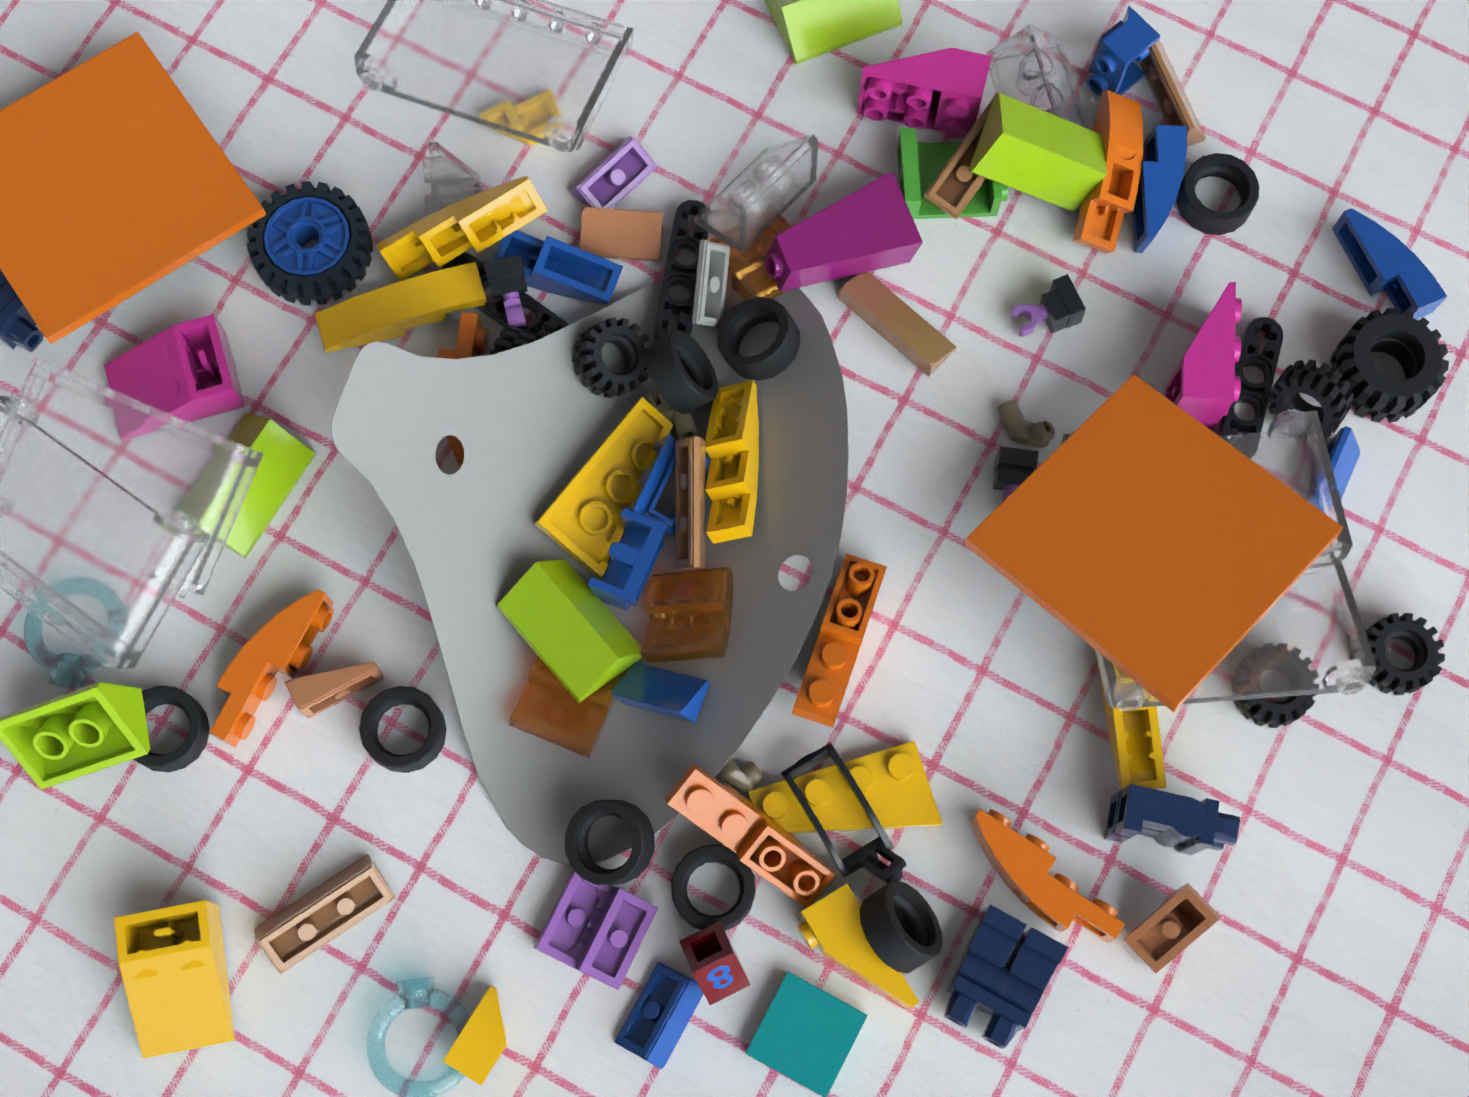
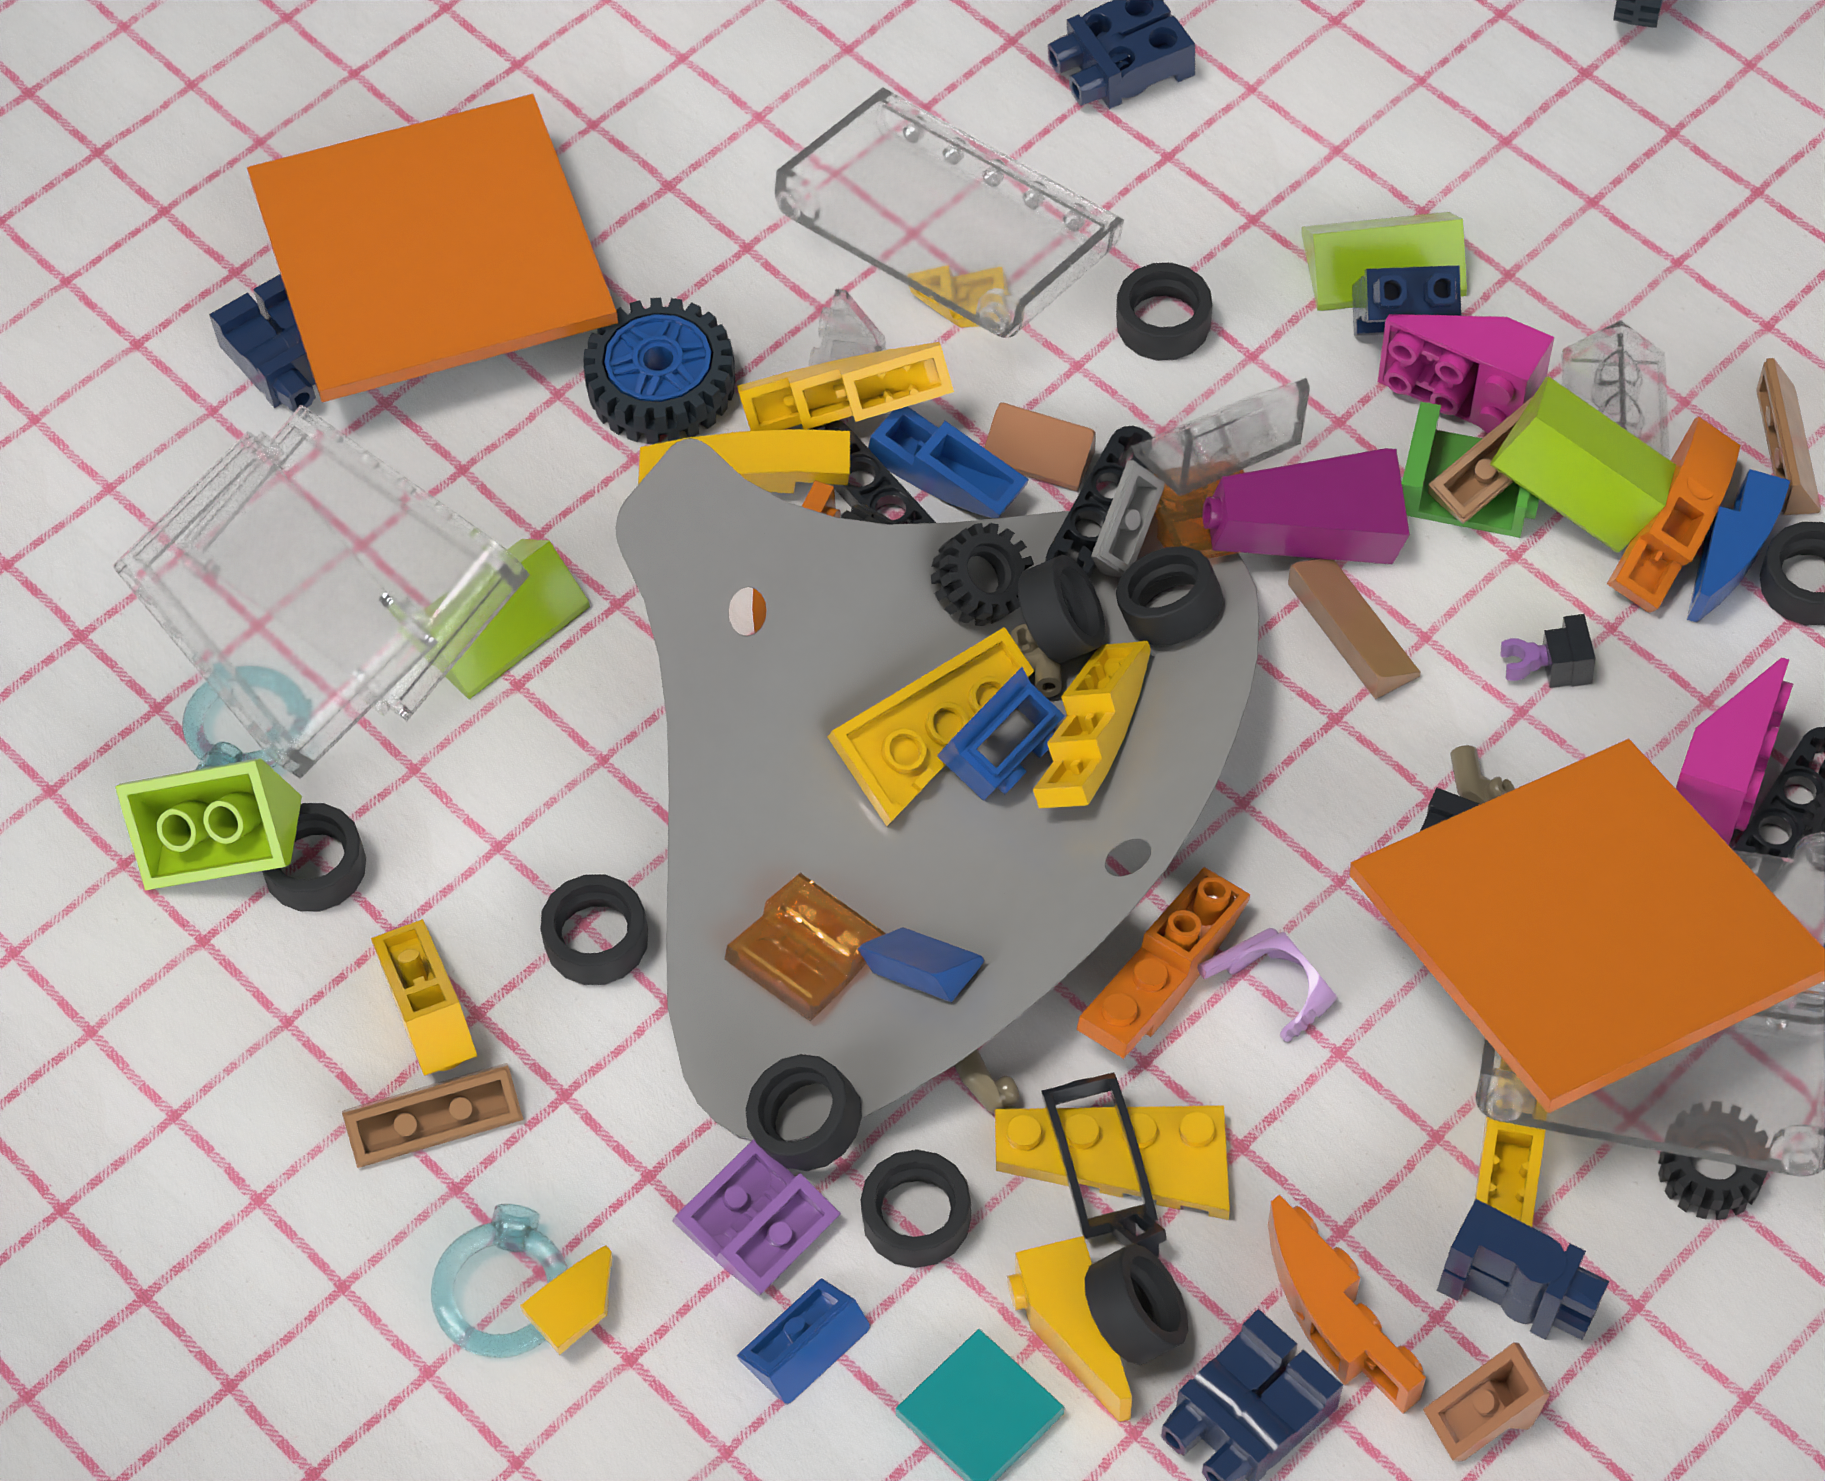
camera: 20 degrees right, 15 degrees down
(176, 977) = (235, 1127): yellow slope -> none
(181, 371) = (469, 465): dark pink slope -> none
(276, 647) = (471, 800): orange slope -> none
(288, 823) = (424, 998): none -> yellow slope
(325, 689) = (527, 859): nougat slope -> none
(508, 281) = (880, 461): black piece -> none
(569, 627) = (832, 861): lime slope -> none
(614, 175) = (1053, 381): medium lavender slope -> none
(631, 561) = (936, 809): blue window -> none
(676, 69) = (1171, 281): none -> black tyre
(688, 615) = (983, 883): clear orange slope -> none
(690, 503) = (1025, 753): medium nougat slope -> none
(714, 963) = (889, 1286): dark red brick -> none
(751, 835) = (979, 1148): orange slope -> none
(867, 46) = (1404, 292): none -> dark blue hips
(911, 598) = (1281, 947): none -> lavender helmet
(1117, 49) = (1718, 381): blue window -> none

